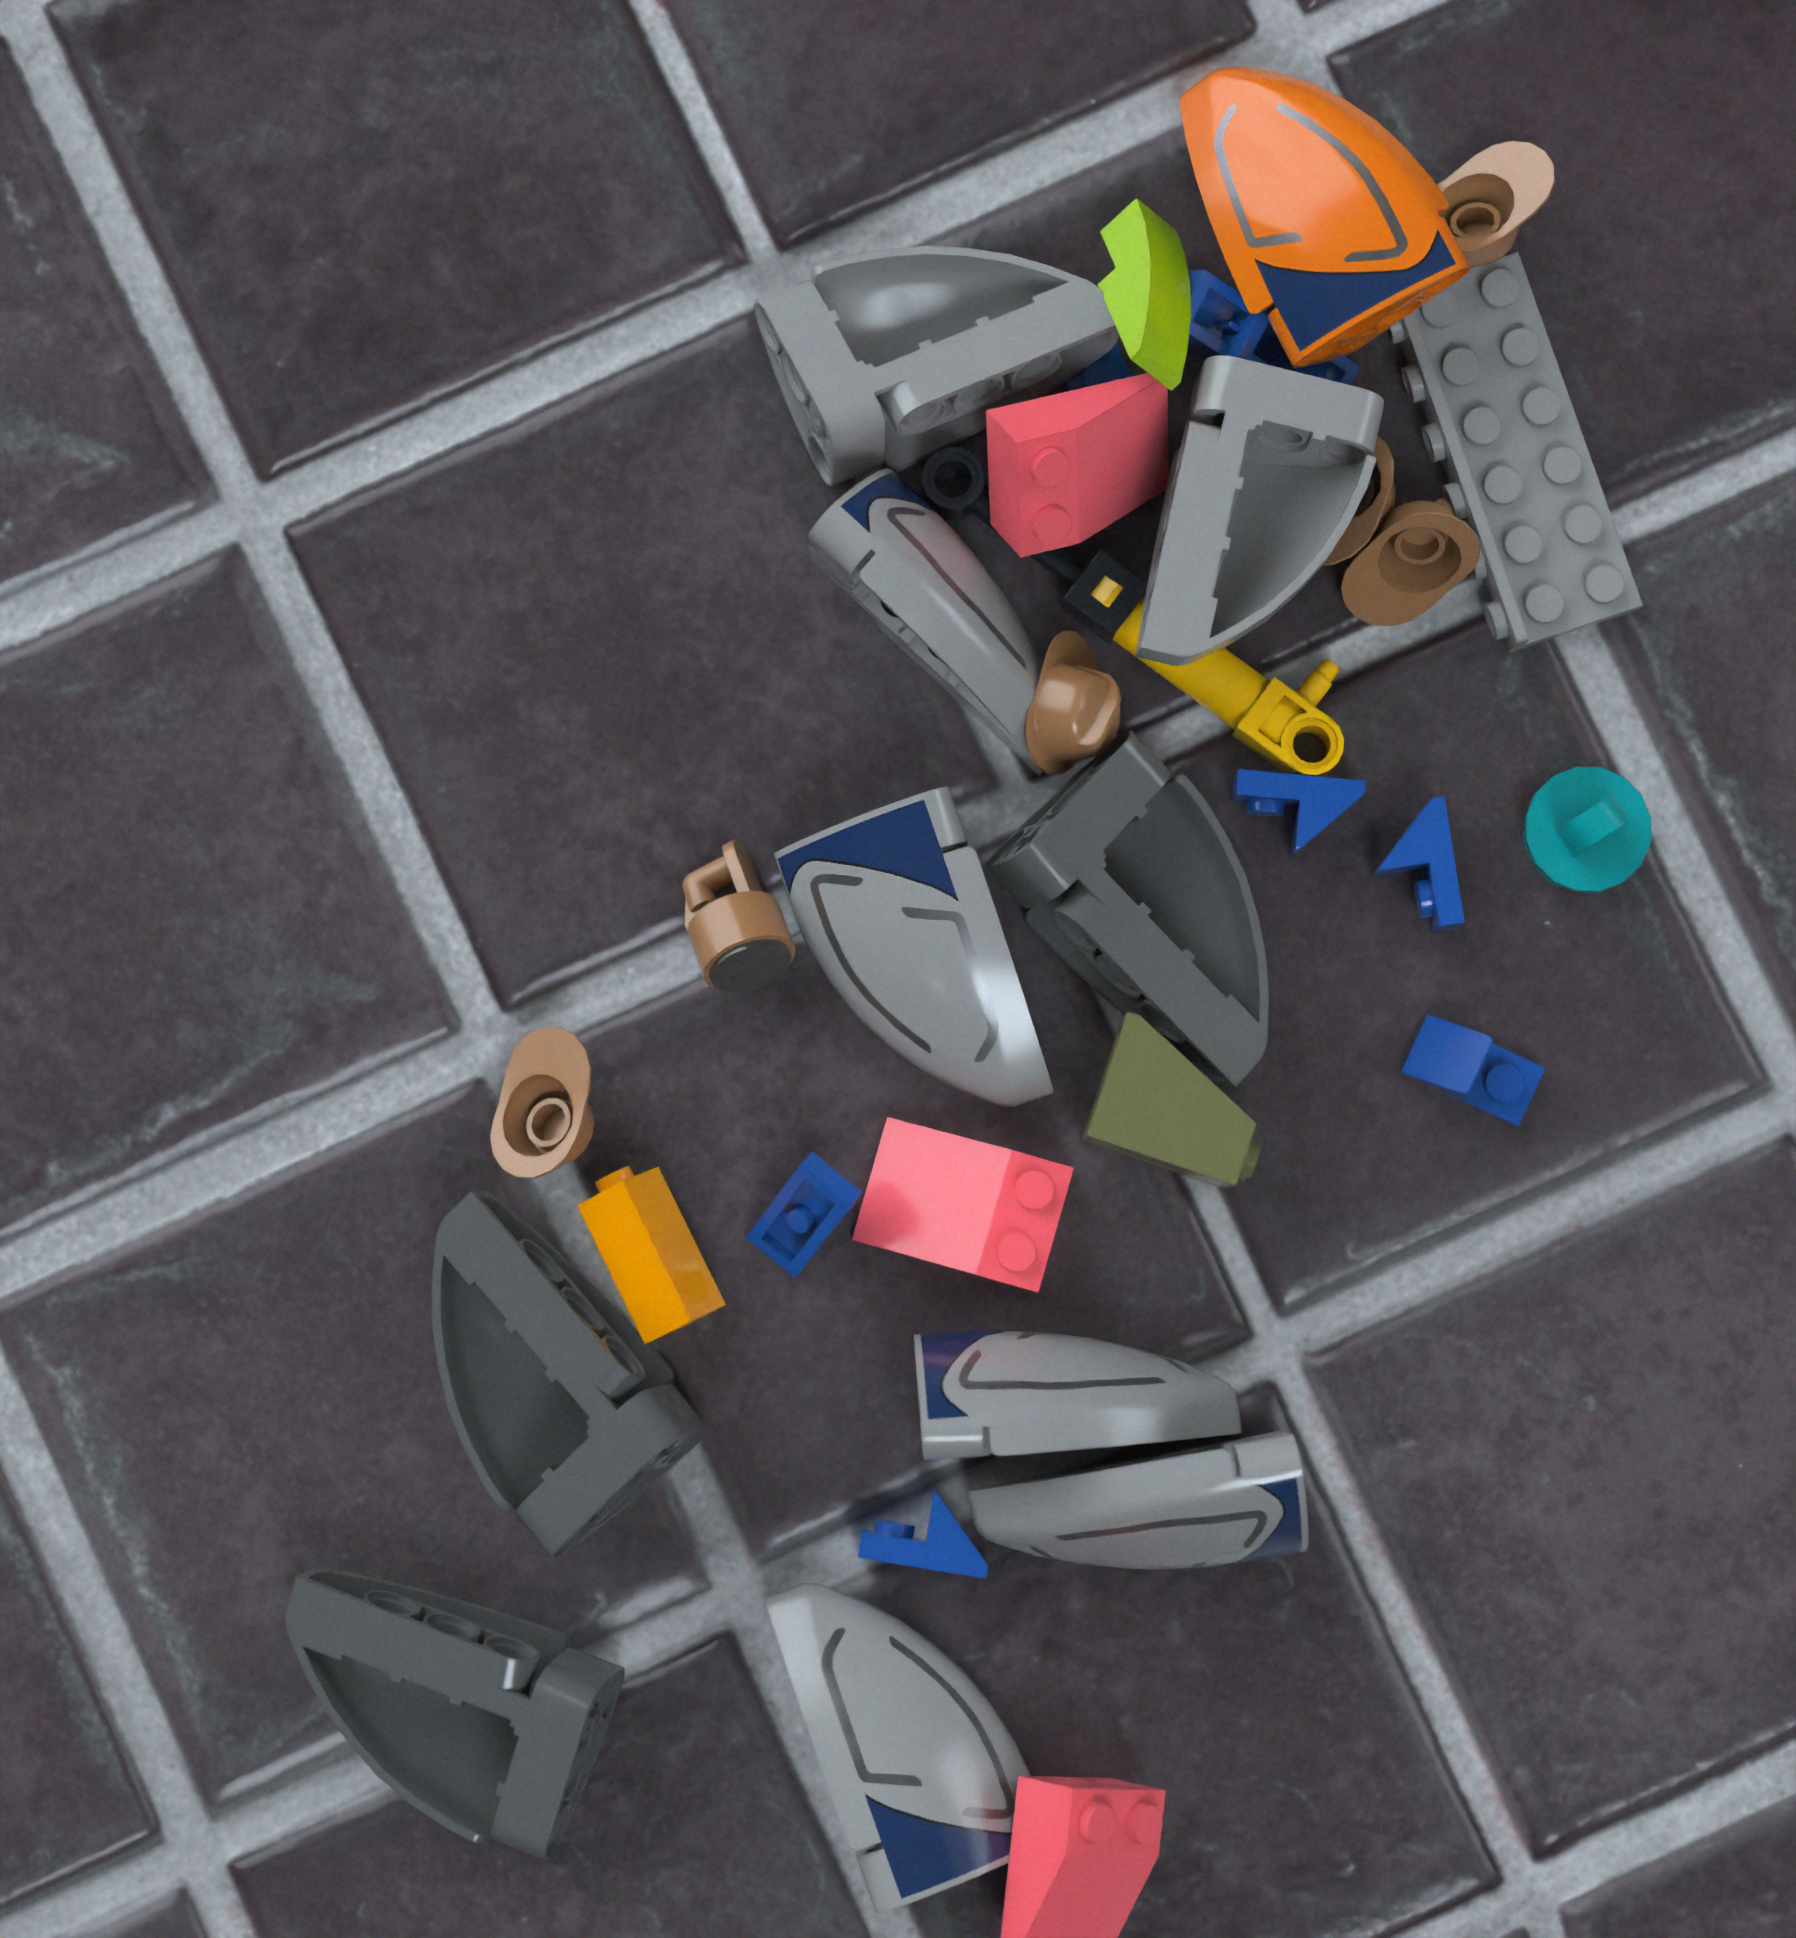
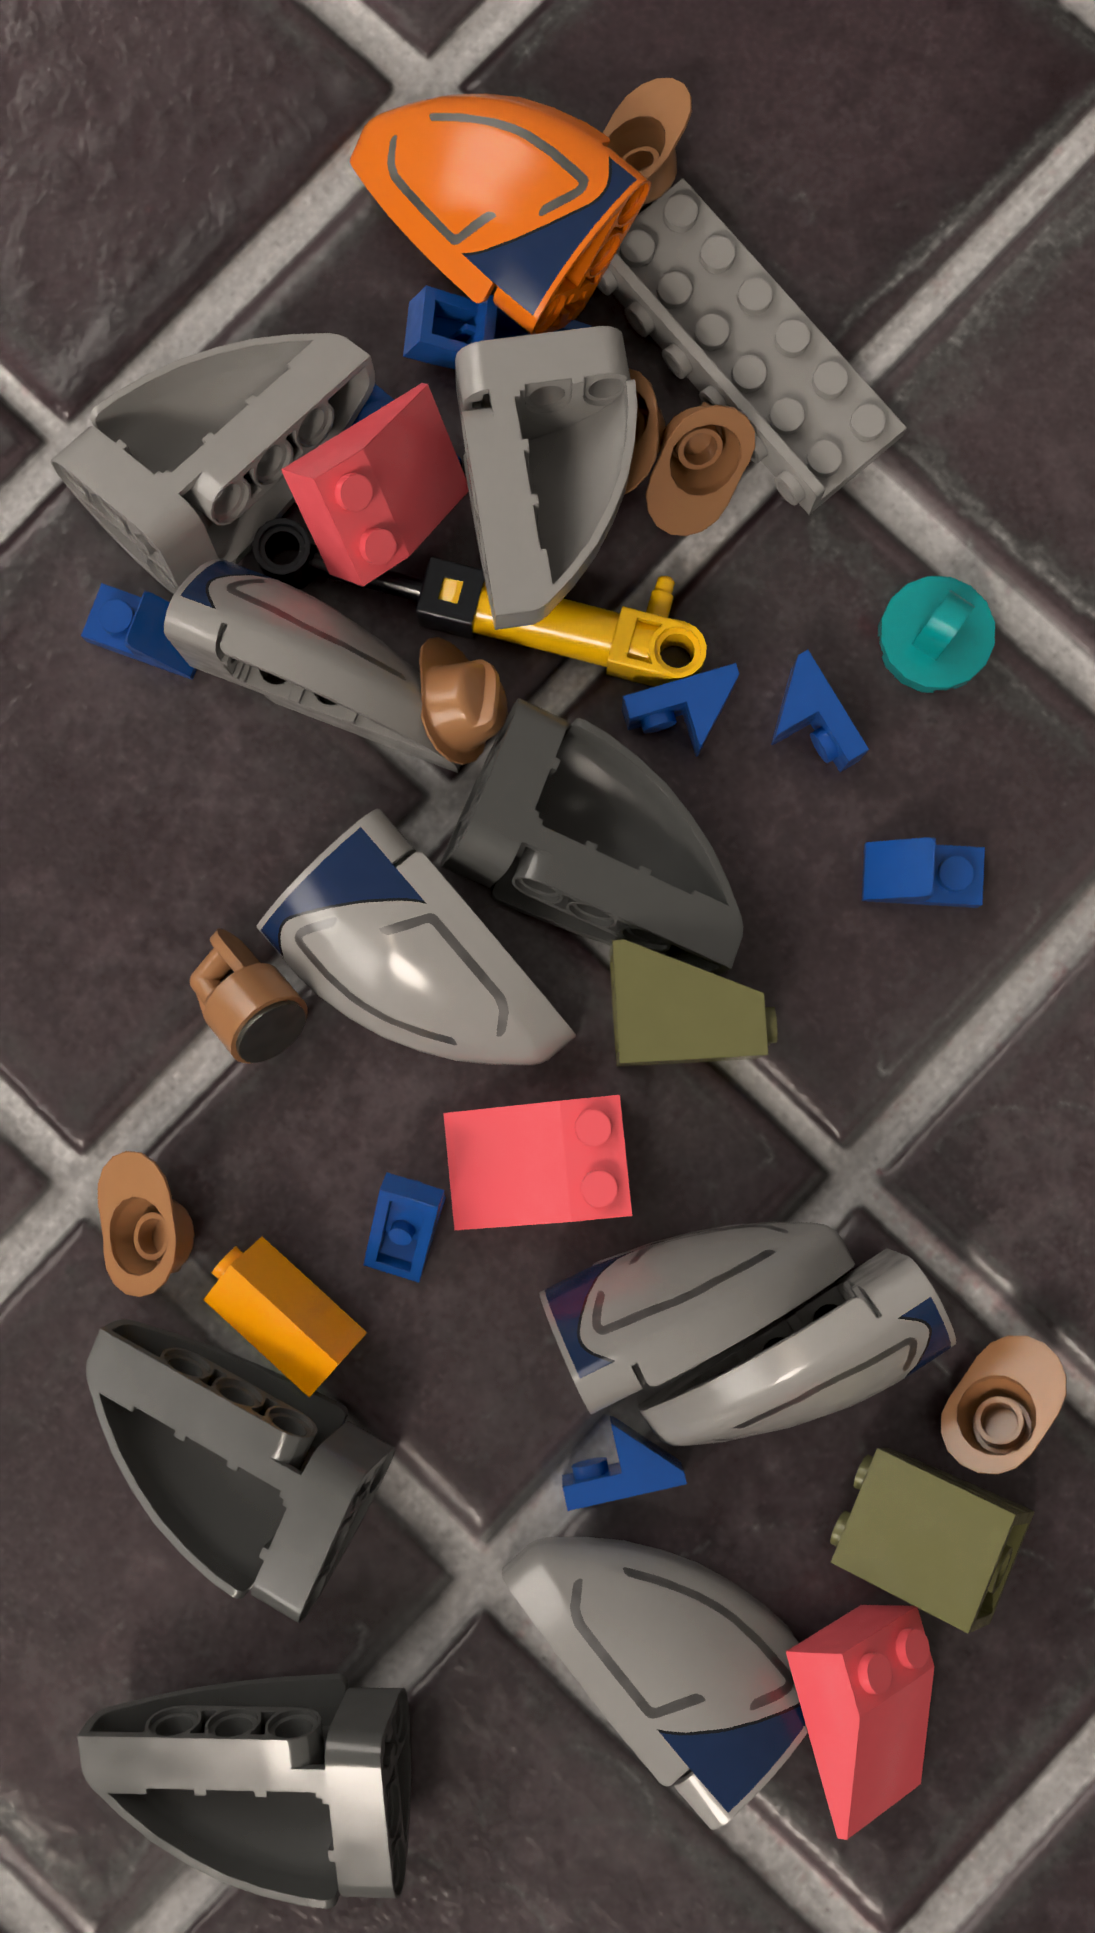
camera: 15 degrees left, 0 degrees up
(773, 499) = (134, 629): none -> blue slope
(1149, 291) = (385, 322): lime slope -> none
(1208, 1733) = (930, 1538): none -> olive slope
(1332, 1629) = (1004, 1405): none -> medium nougat piece

